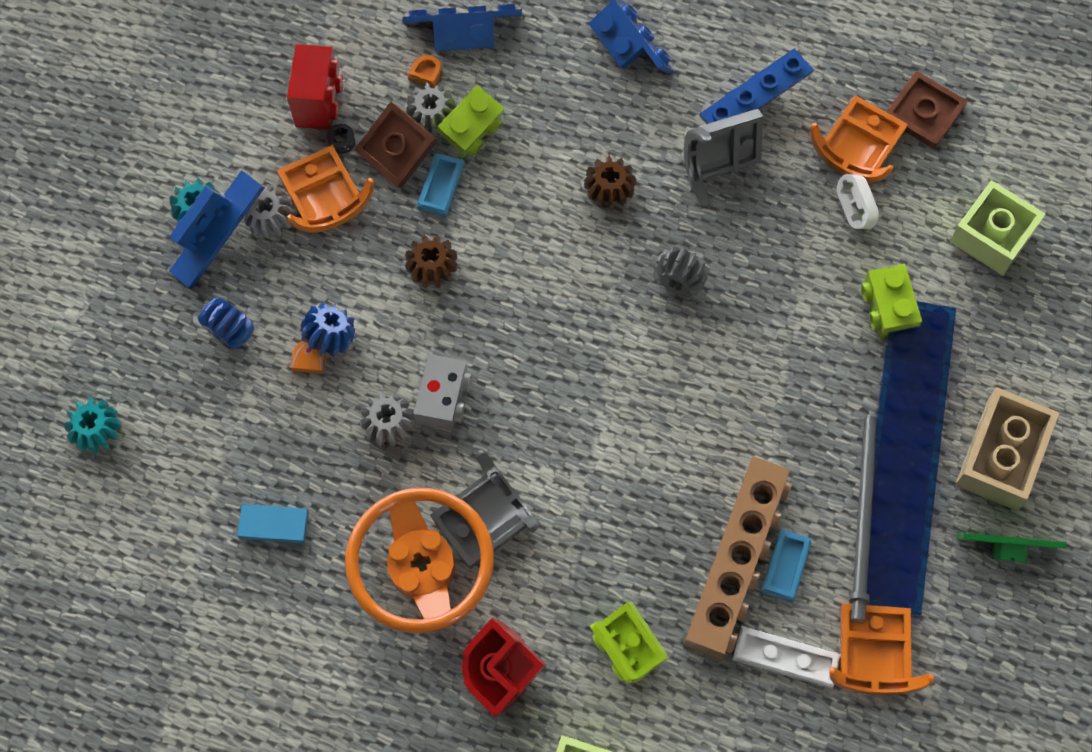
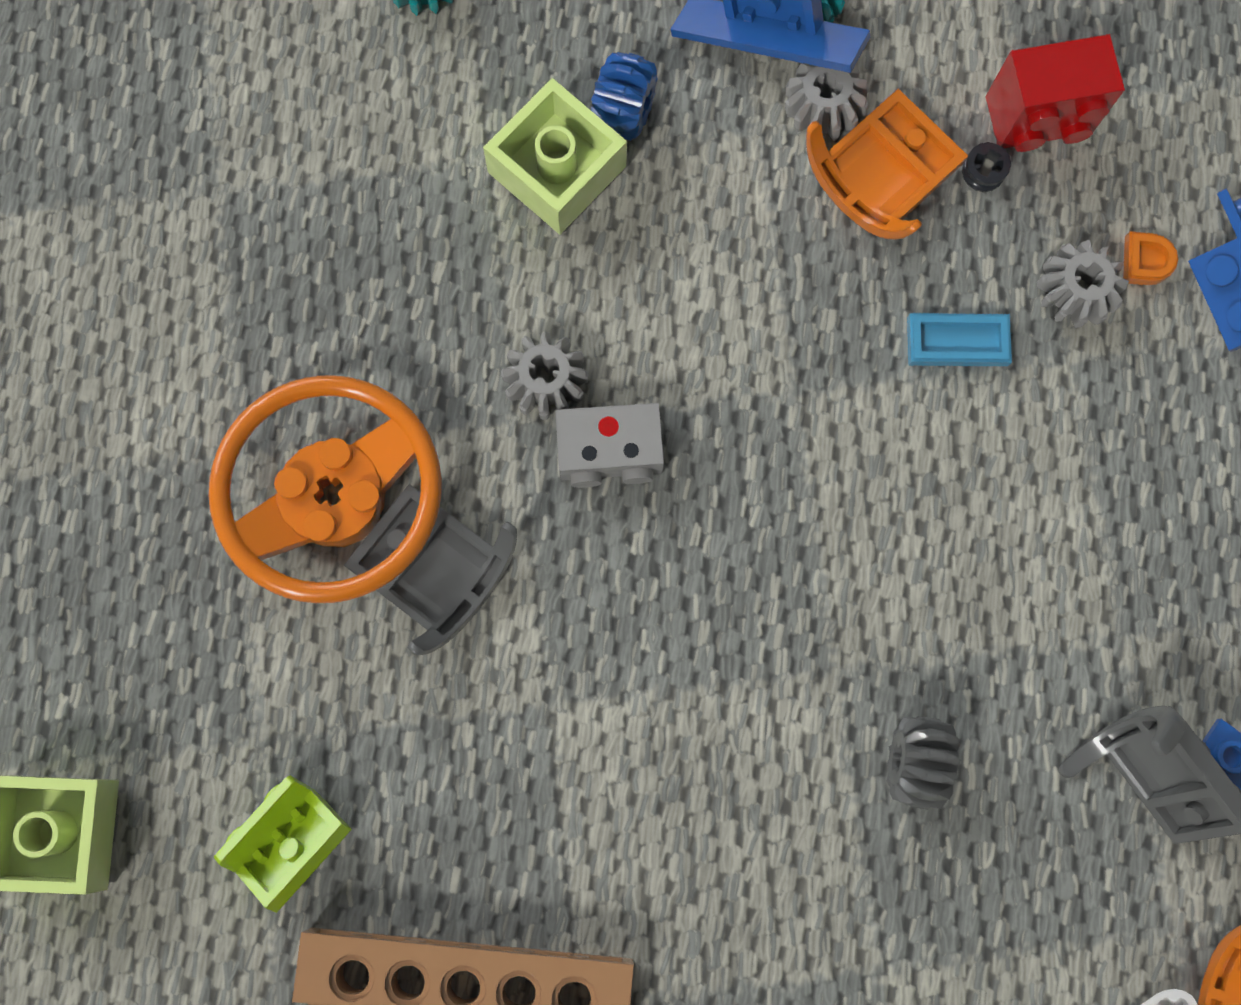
camera: 70 degrees right, 10 degrees up
(251, 372) = (556, 156): none -> yellowish green brick
(273, 523) = (344, 266): dark azure tile -> none
(307, 360) = (614, 233): orange tile -> none
(327, 329) = (674, 239): blue gear -> none
(396, 144) = (1001, 250): copper tile -> none
(431, 270) = (840, 369): reddish brown gear -> none
(471, 121) = (1080, 351): lime bracket -> none
(499, 666) = (196, 655): red brick -> none
(621, 179) = (1055, 622): reddish brown gear -> none

